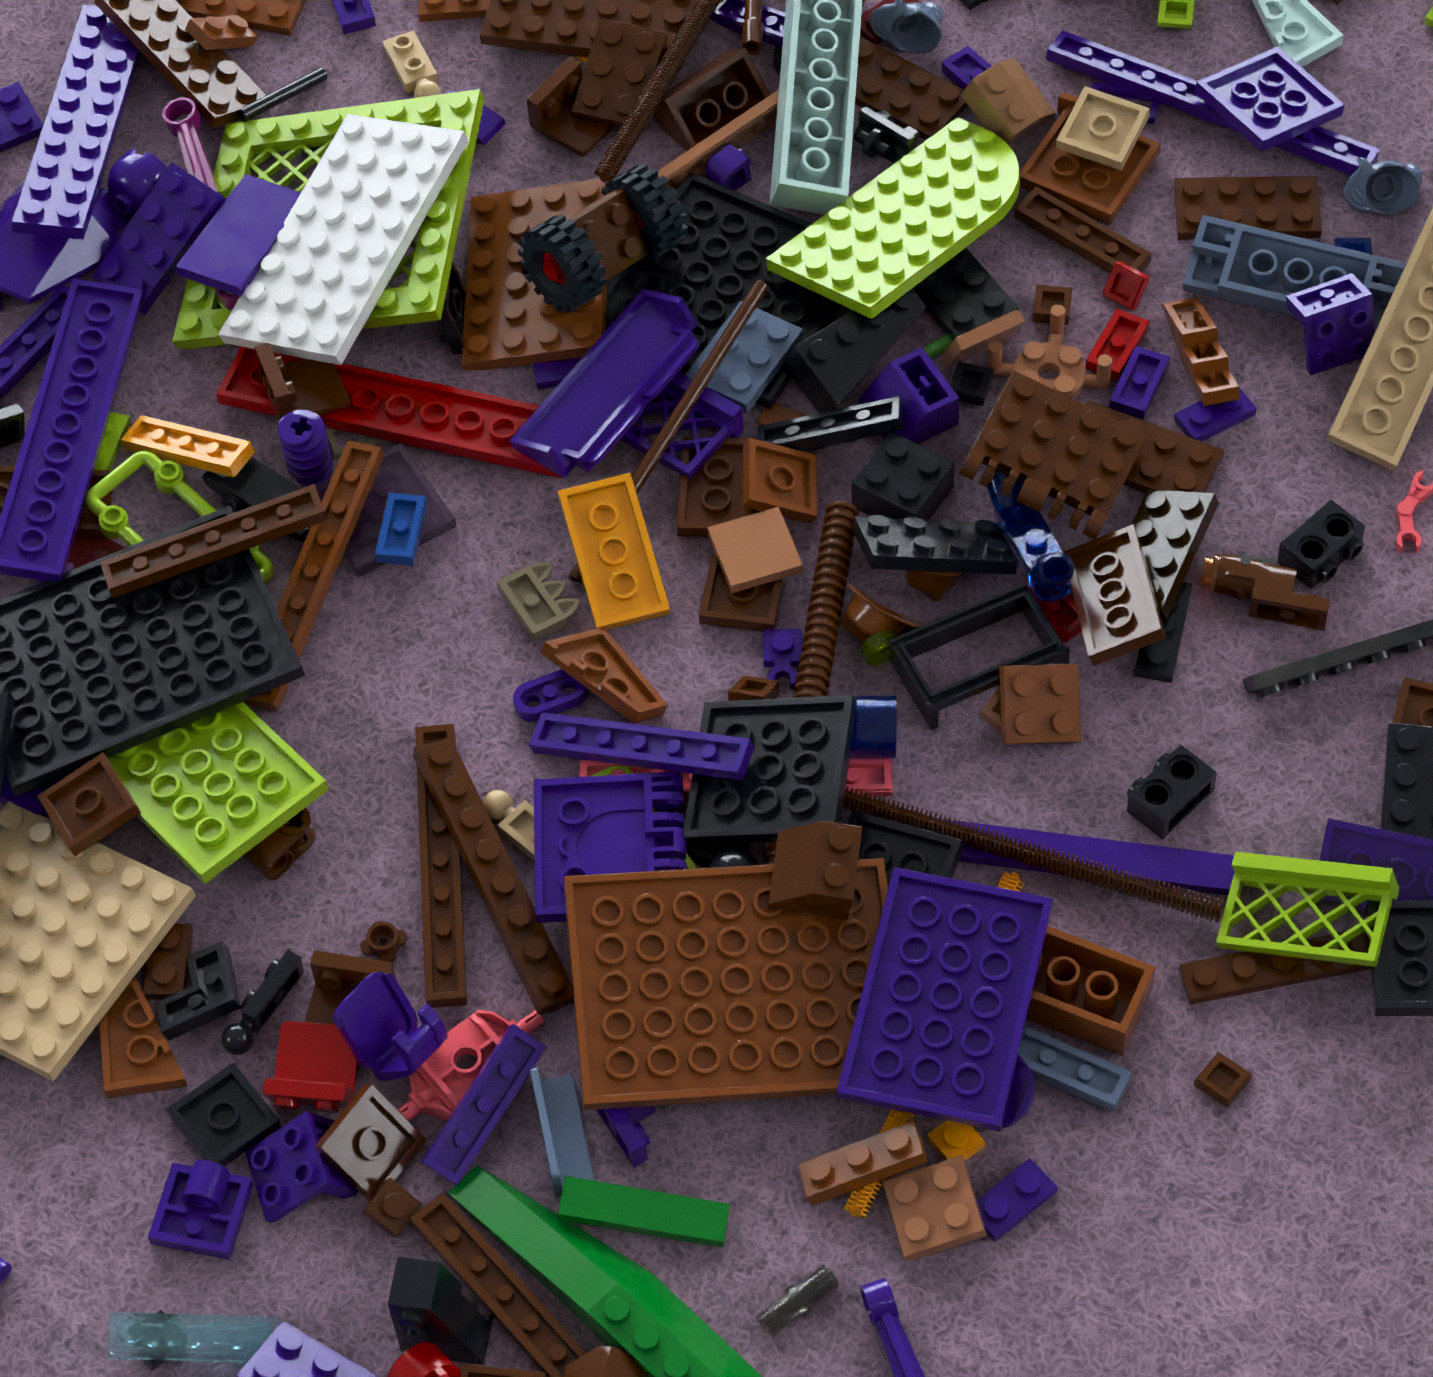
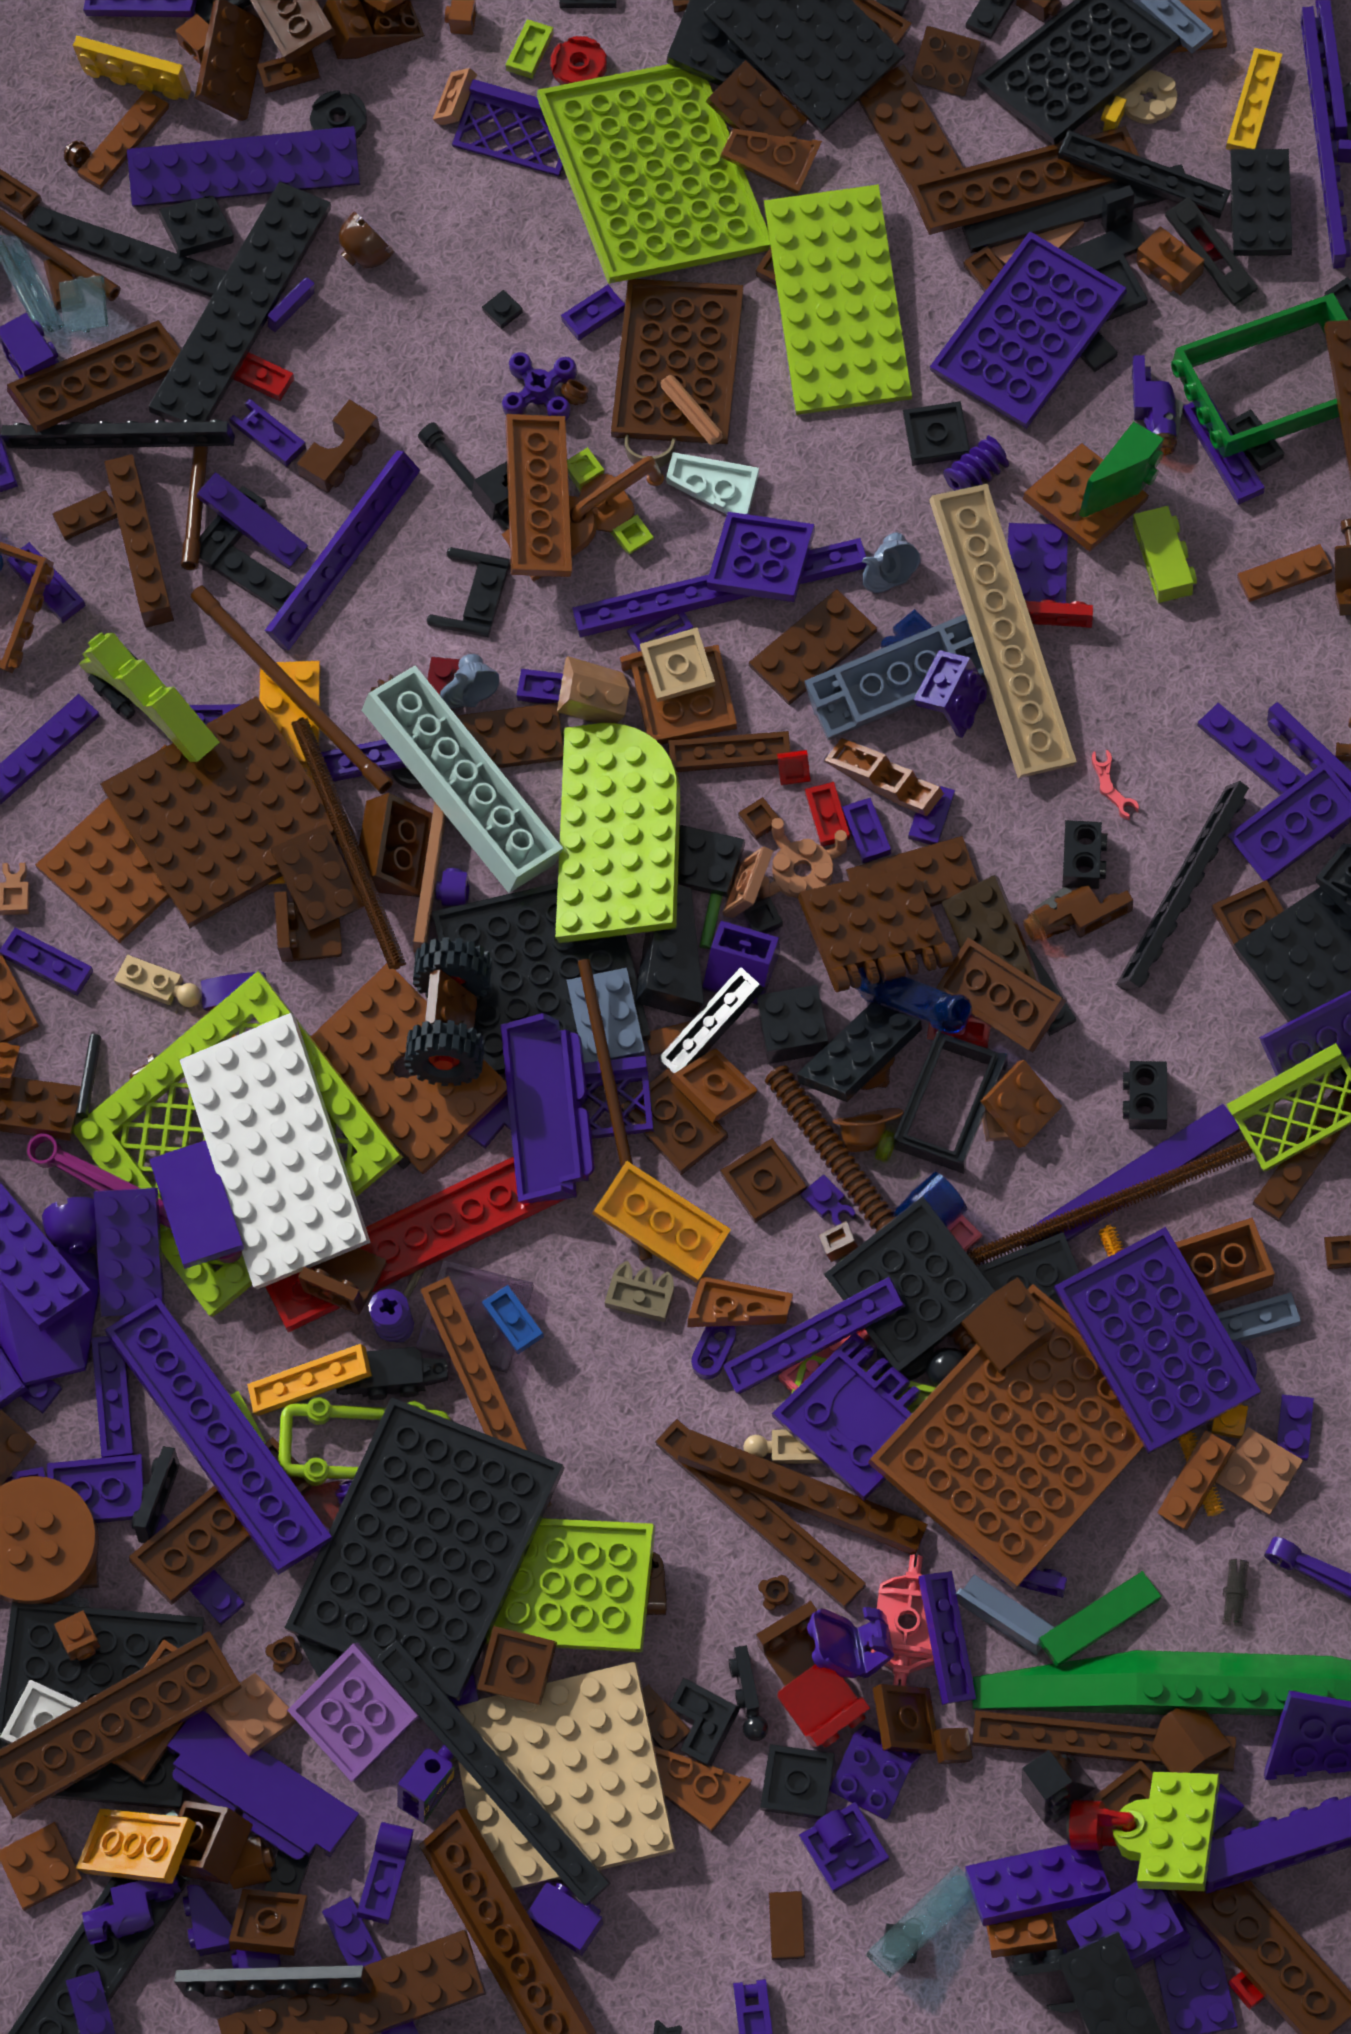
camera: 40 degrees left, 10 degrees up
(80, 1235) = (786, 1925): none -> reddish brown tile
(213, 541) = (414, 1430): reddish brown plate -> none
(755, 550) = (748, 1146): nougat tile -> none
(883, 137) = (535, 782): black hips -> none

